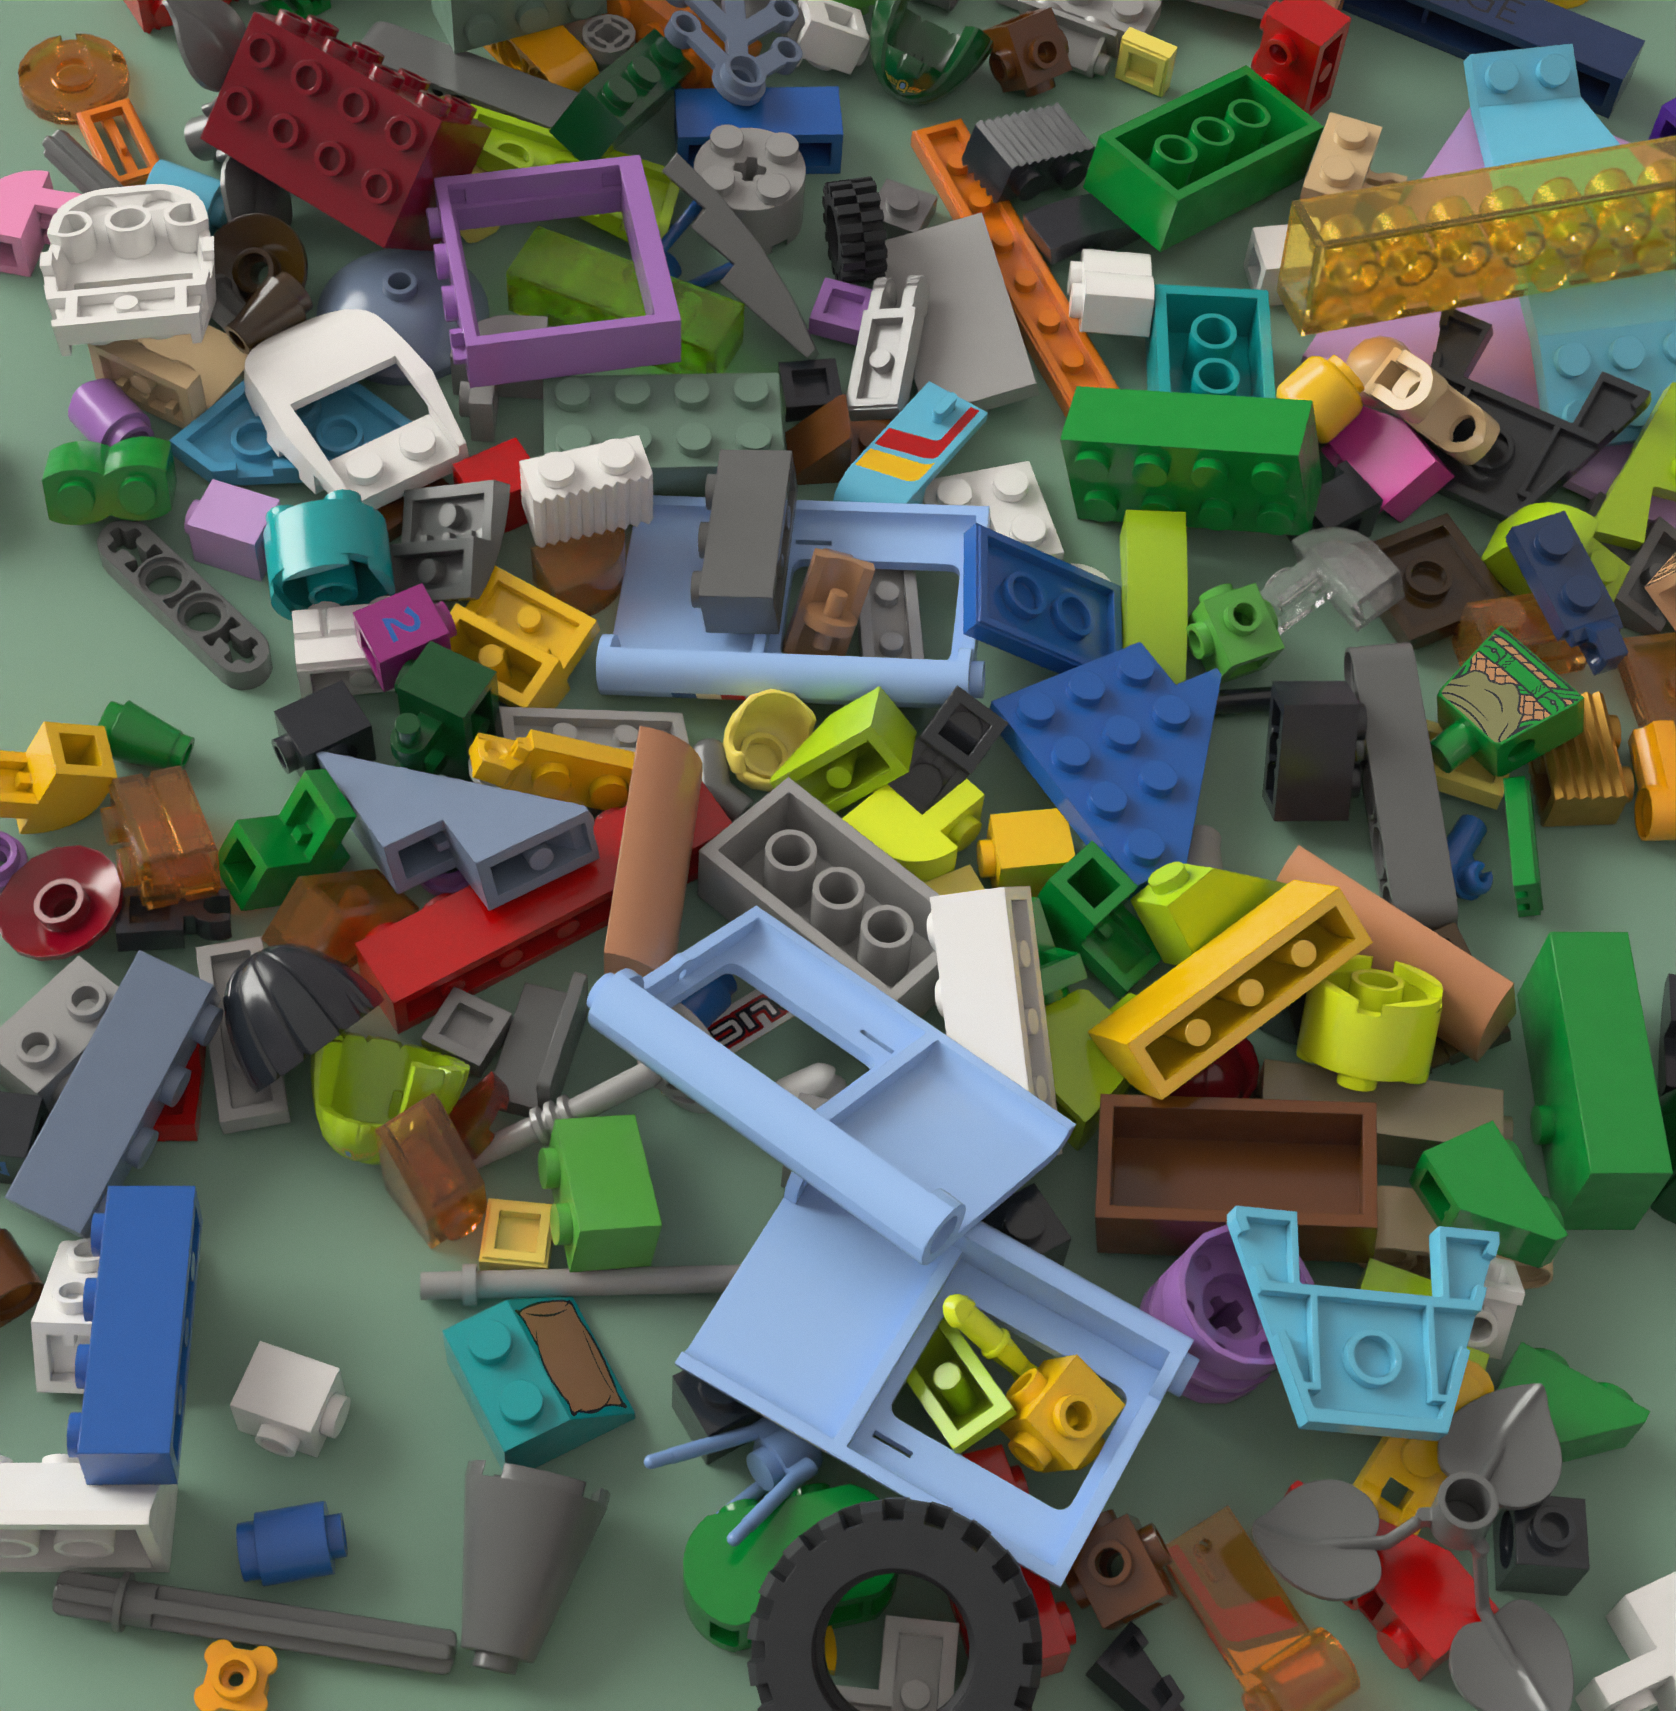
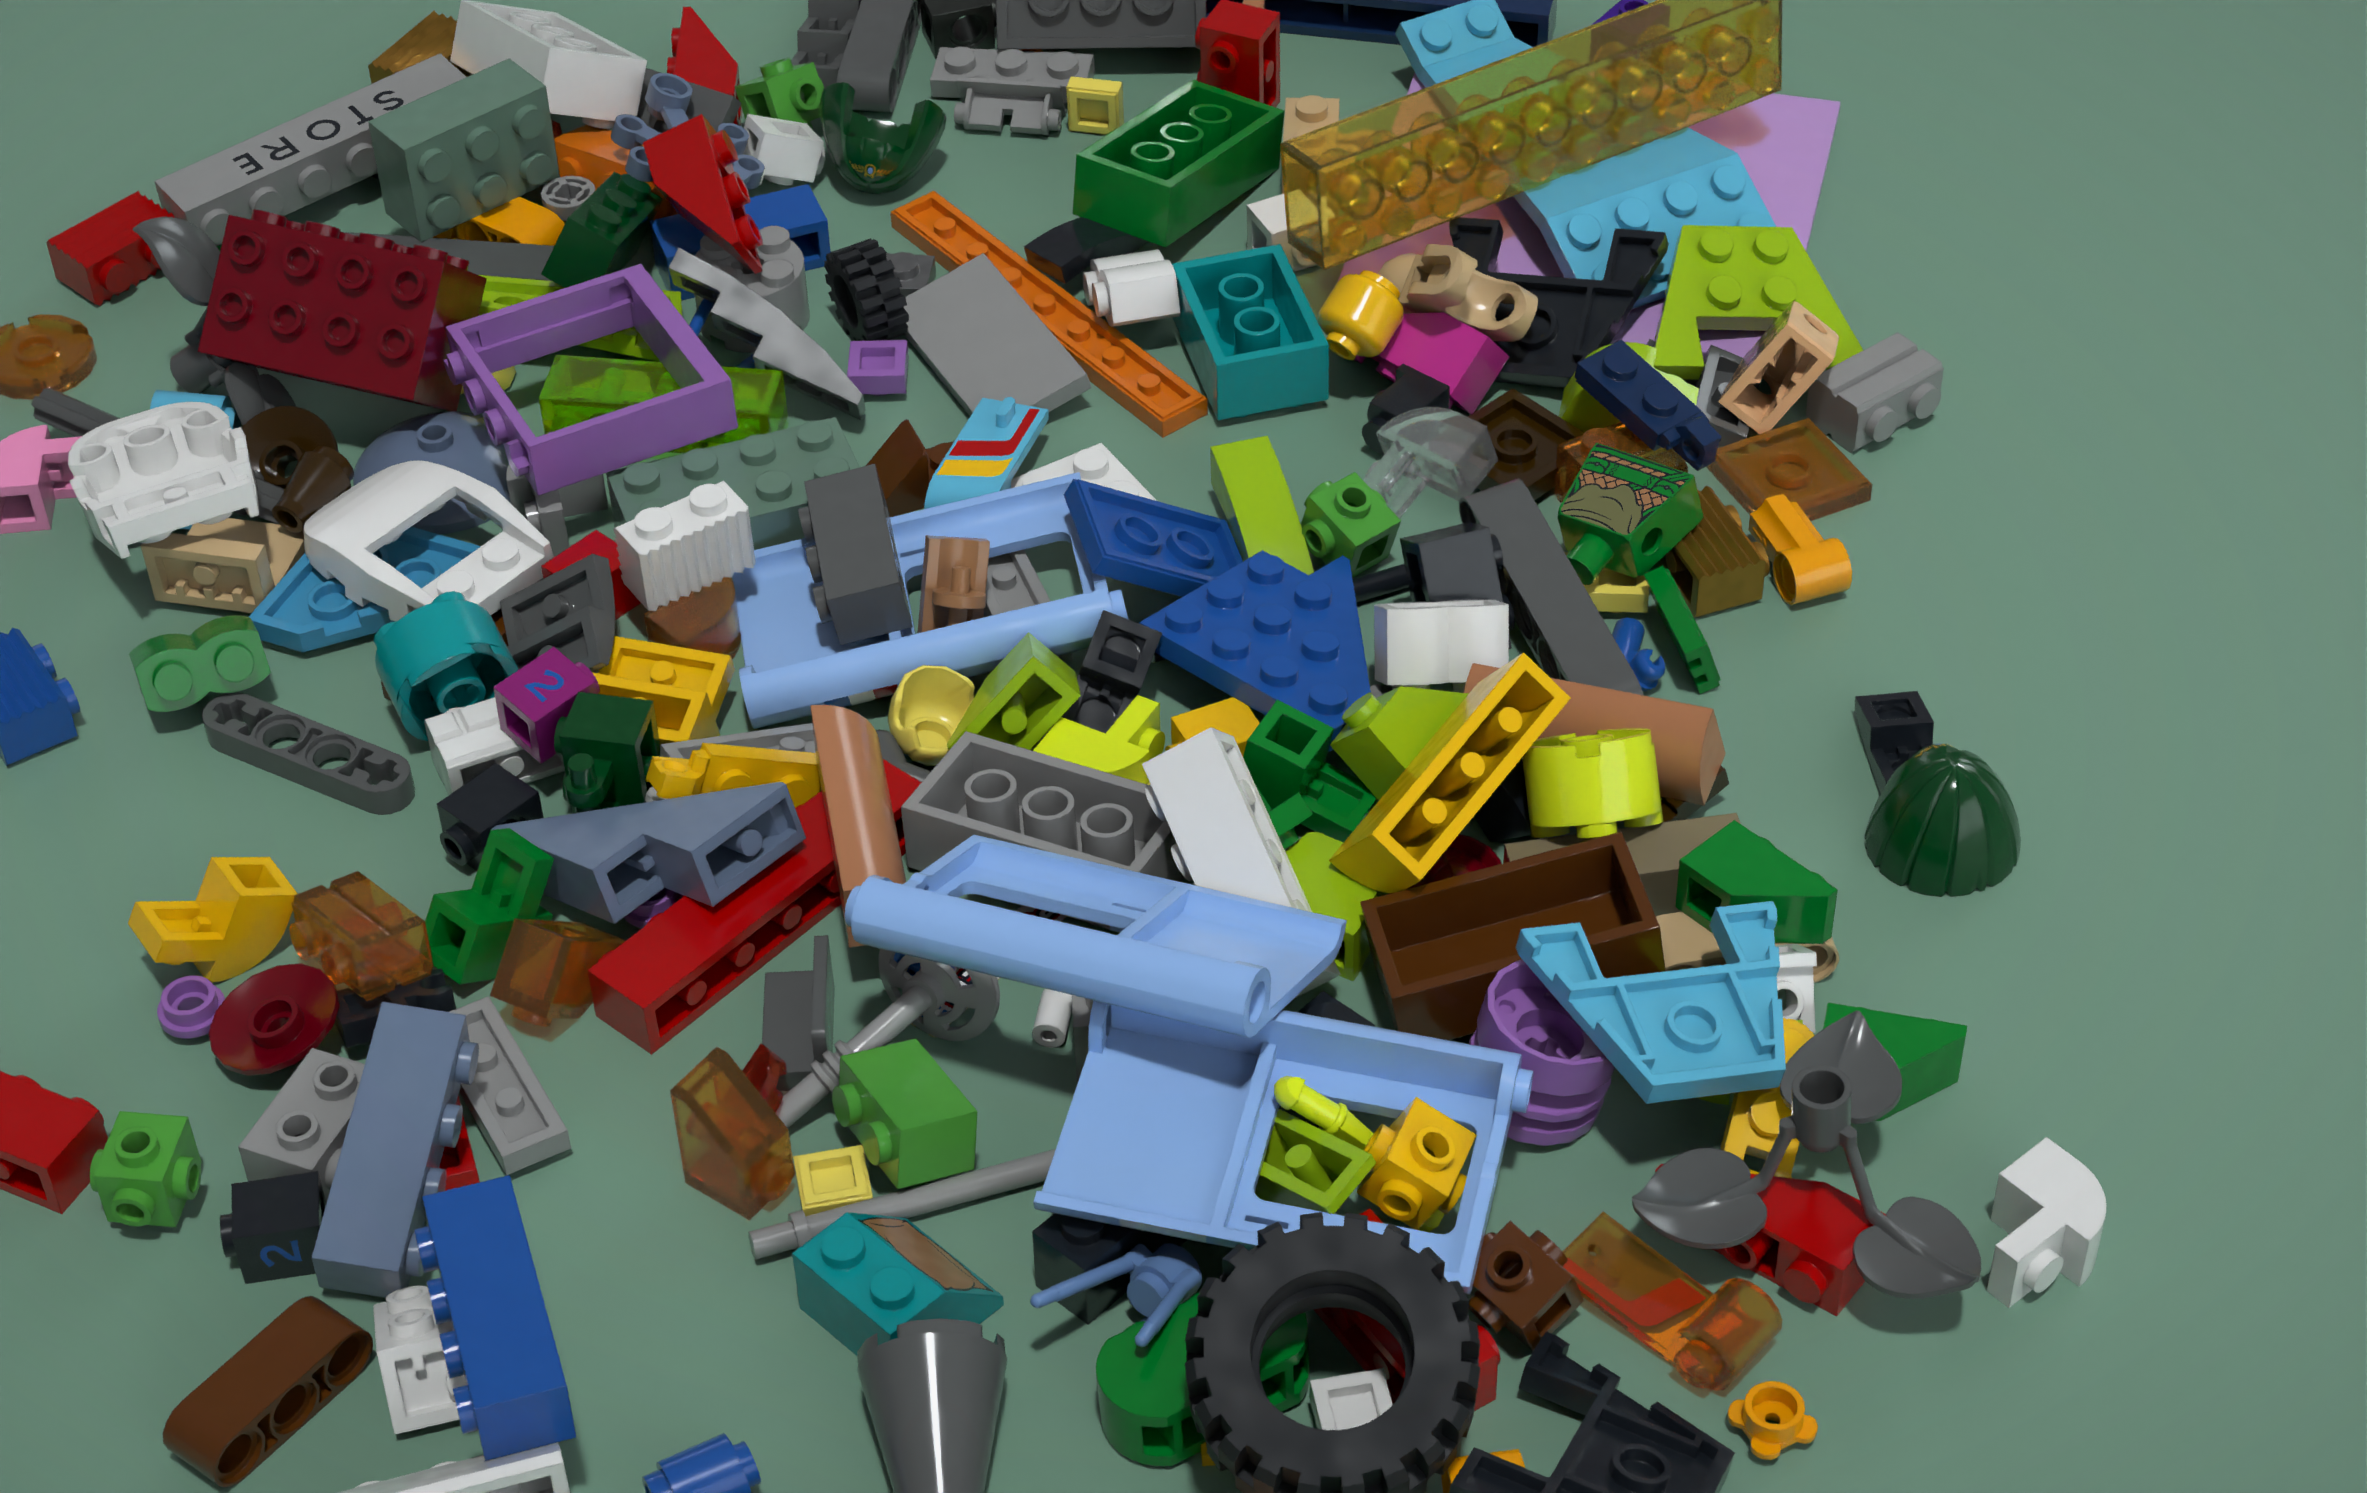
camera: 10 degrees left, 15 degrees down
(105, 116) = (99, 397): orange tile -> none
(107, 413) = (173, 610): medium lavender brick -> none
(144, 738) = (309, 863): green cone -> none
(229, 529) = (337, 677): lavender brick -> none
(289, 1006) = (541, 1027): black hair -> none
(290, 1401) = (657, 1366): white brick -> none
(372, 1080) = (634, 1088): lime hair -> none
(468, 1030) = (722, 1022): flat silver plate -> none
(724, 69) = (697, 178): none -> red slope
(807, 386) = (867, 430): black plate -> none
(887, 350) = (933, 381): light grey hinge -> none
(1028, 52) = (982, 120): reddish brown brick -> none
(1028, 153) = (1010, 198): black brick -> none
(1207, 455) = (1286, 376): green brick -> none
(1276, 807) = (1438, 641): none -> white brick
(1541, 1547) = (1908, 1157): black brick -> none
(1593, 1081) = (1817, 782): green brick -> none

